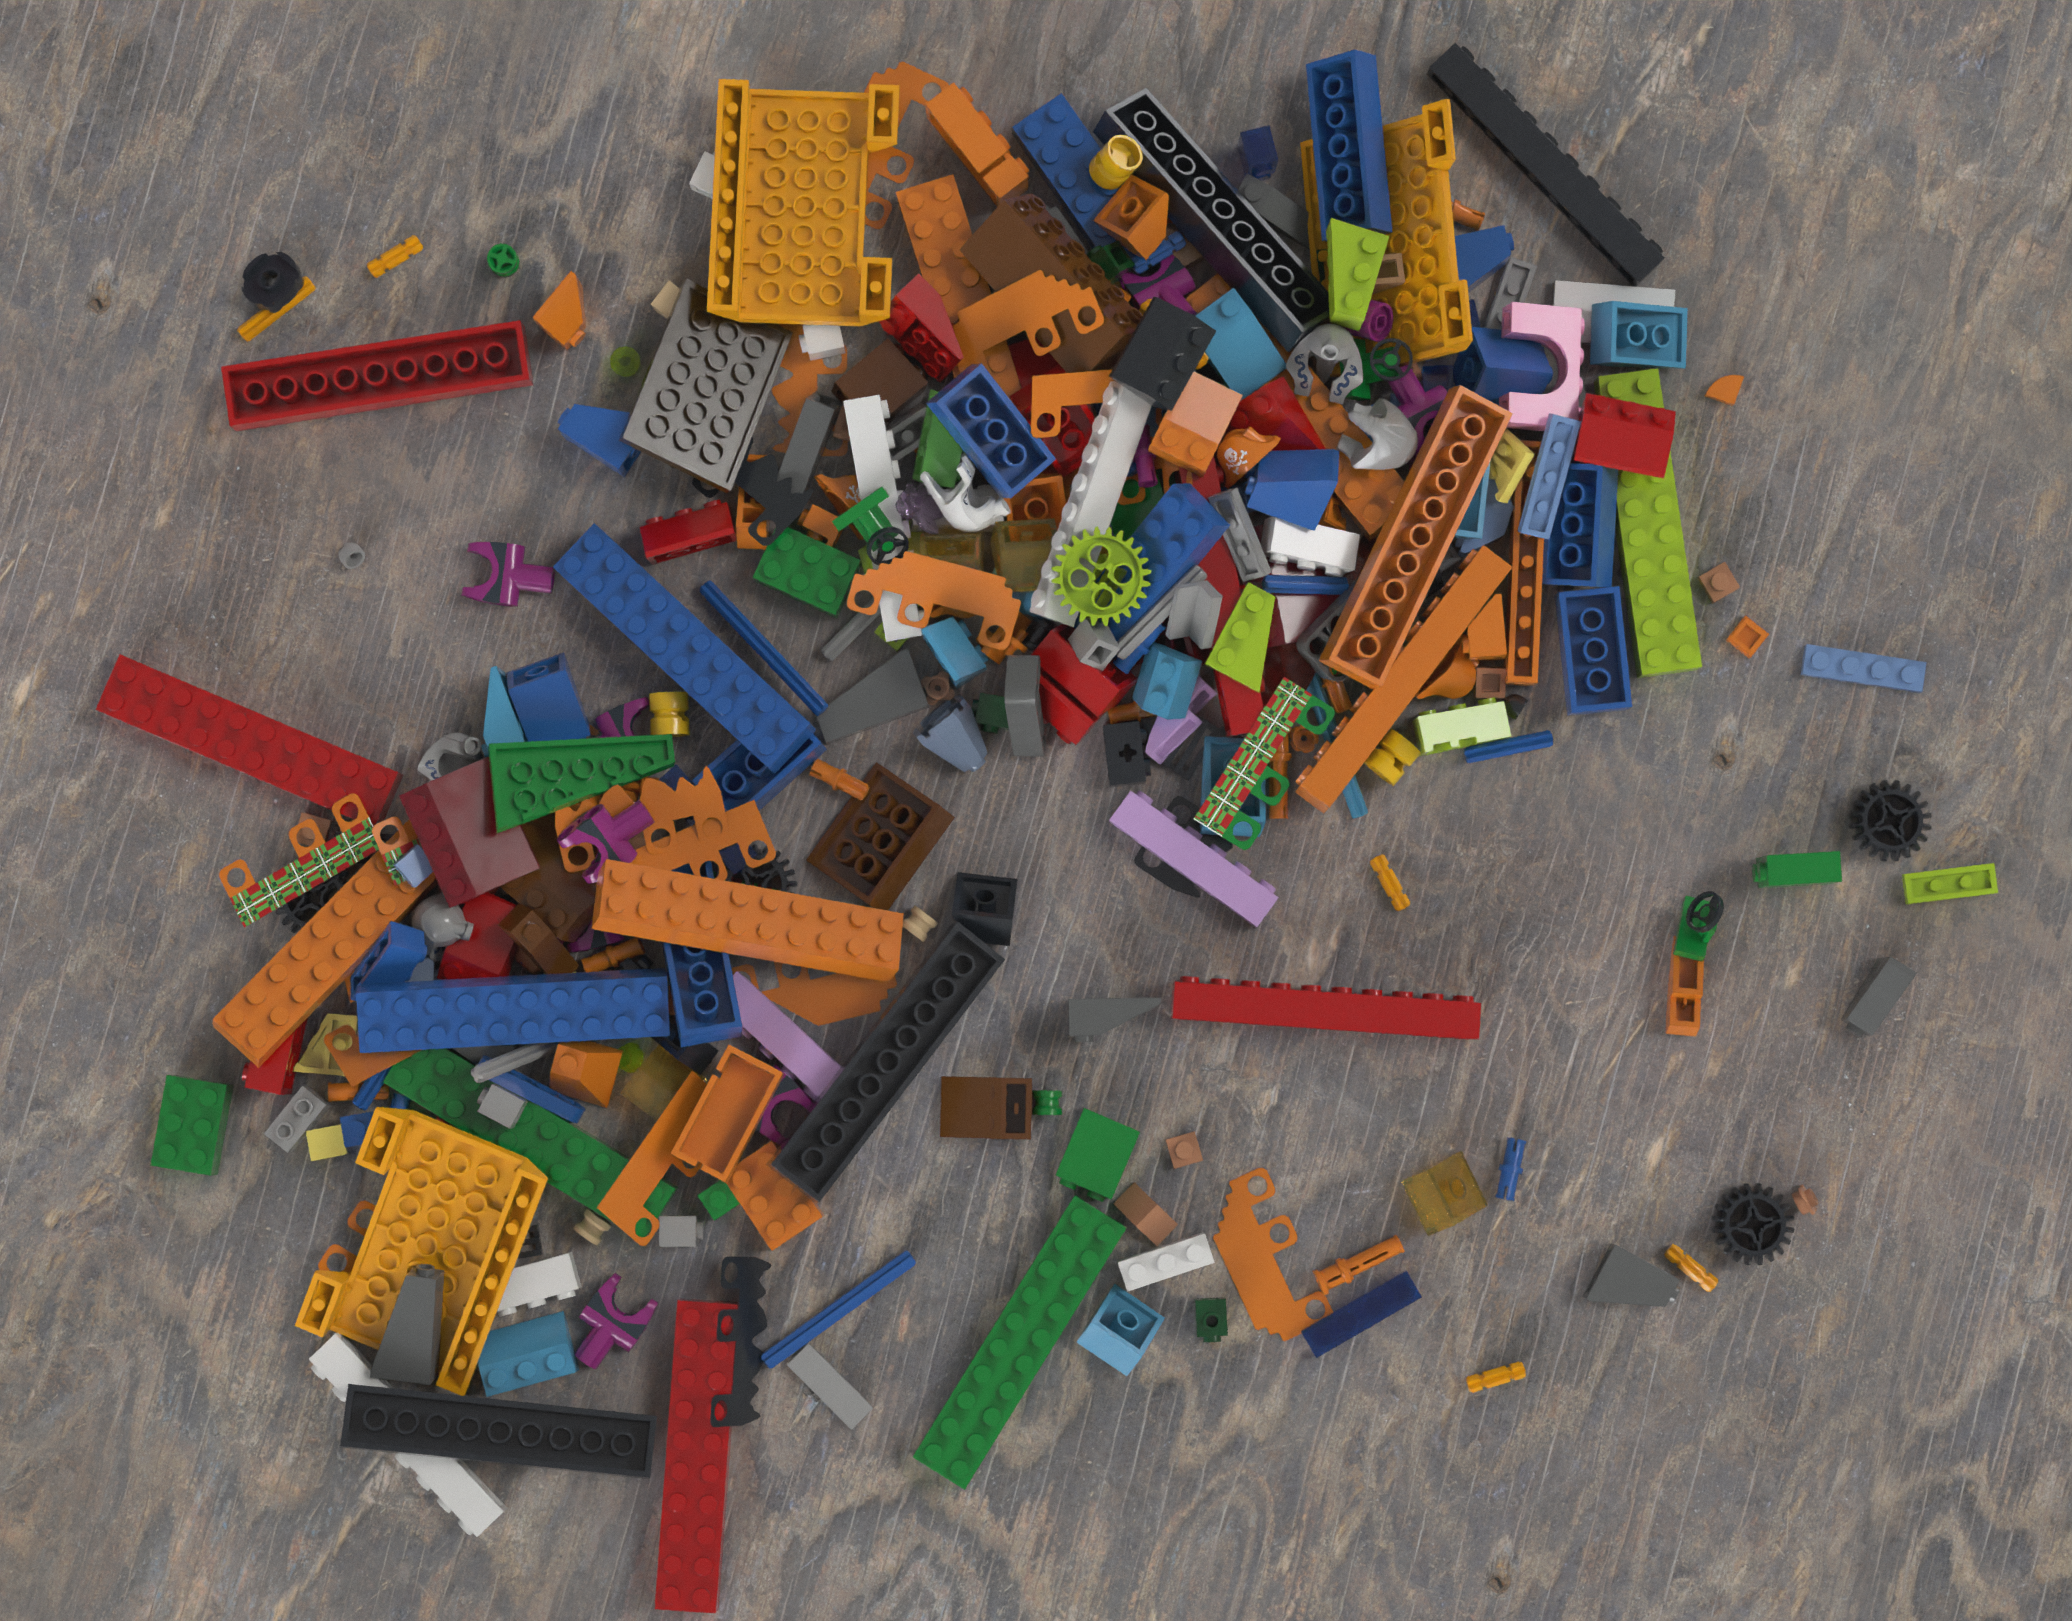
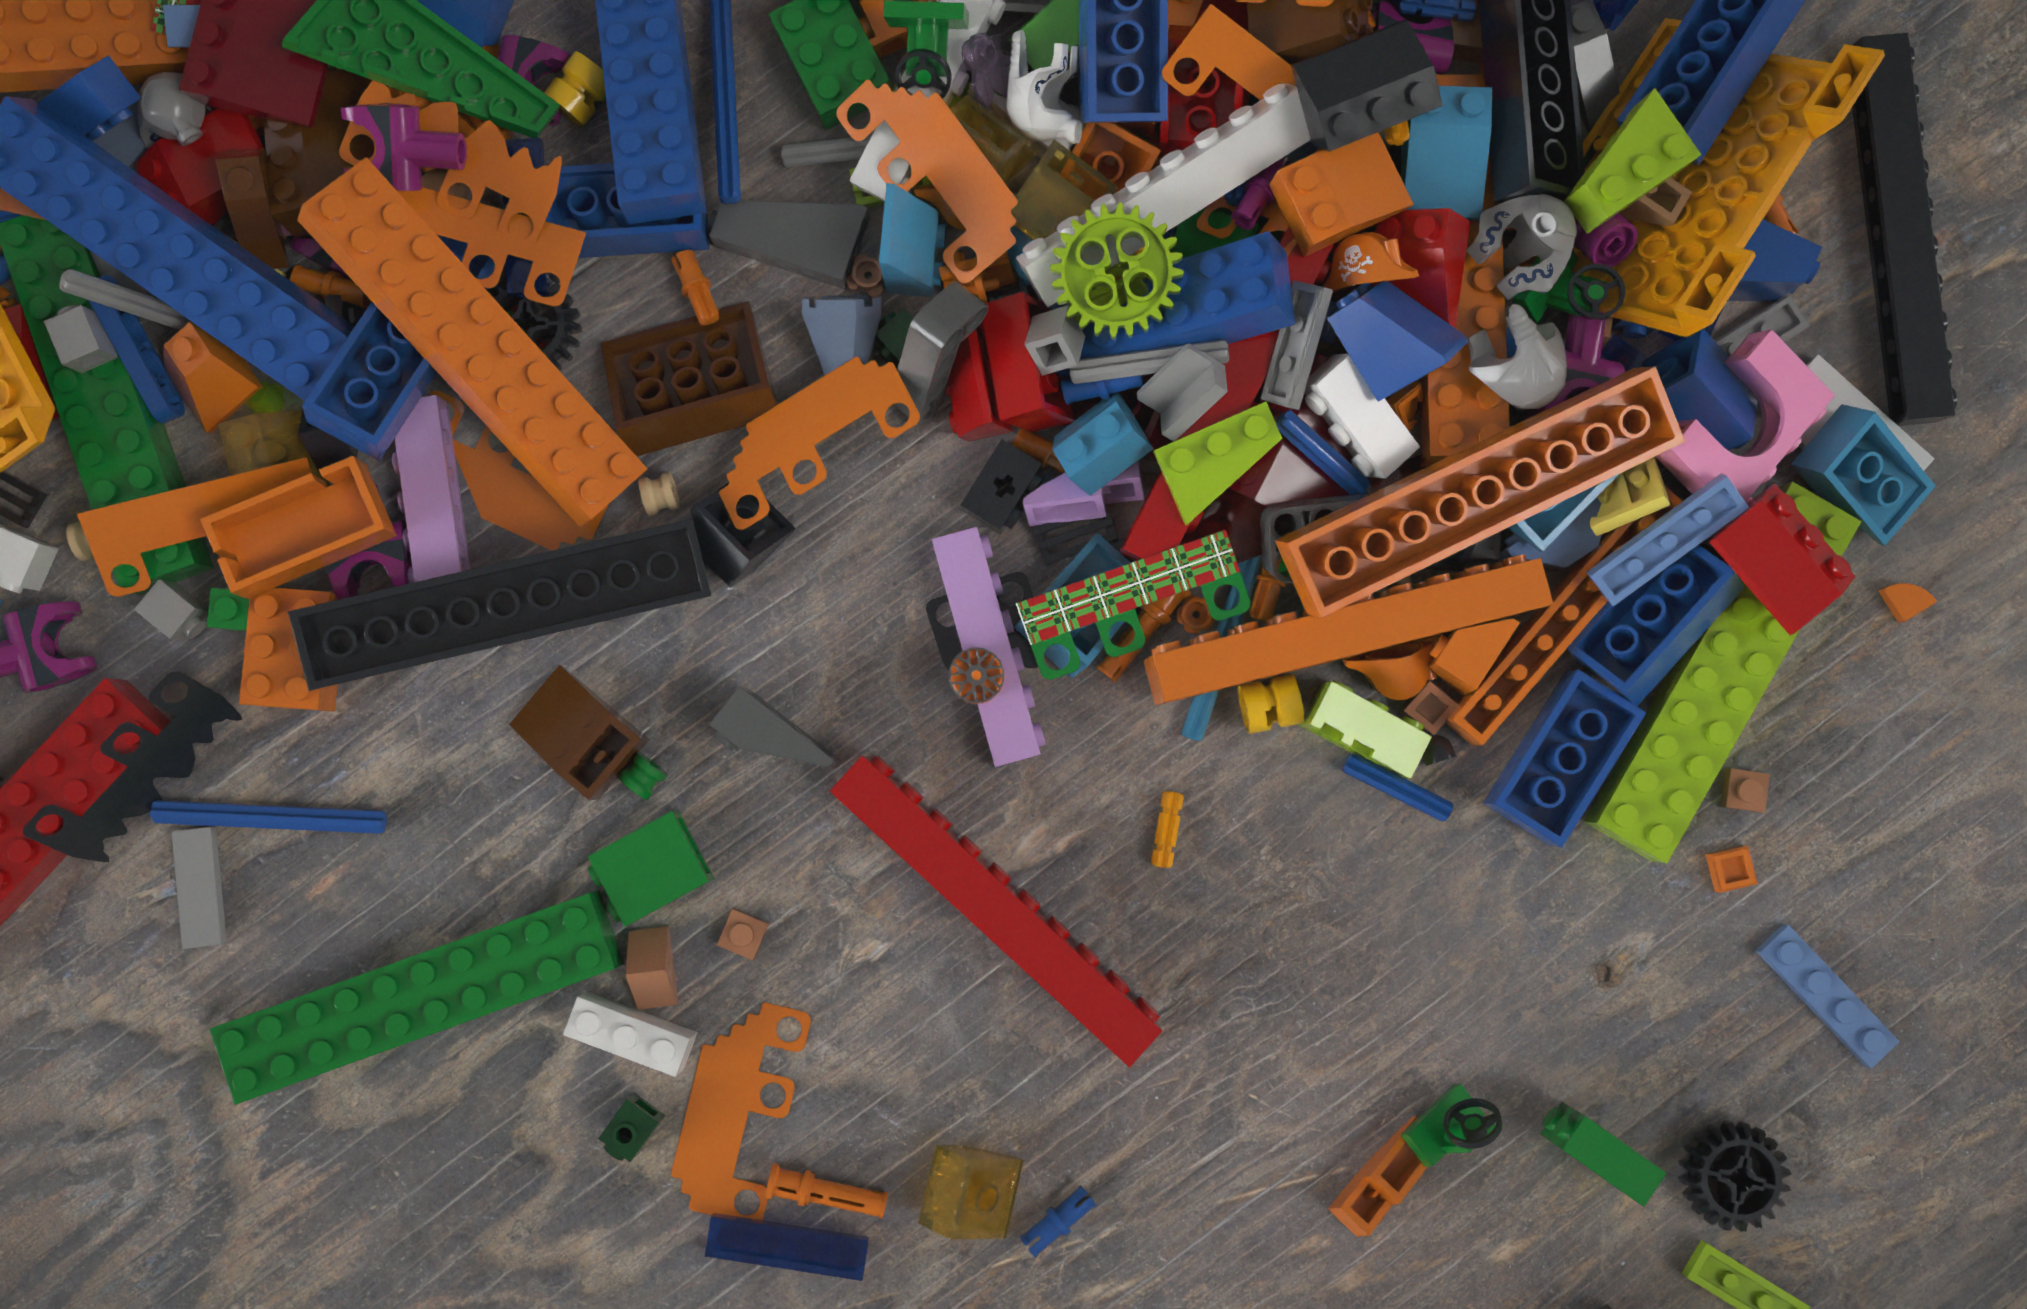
camera: 40 degrees right, 0 degrees up
(977, 803) = (808, 417): none -> orange piece
(1120, 1330) = (530, 1067): dark azure slope -> none
(1203, 880) = (976, 675): none -> wheel

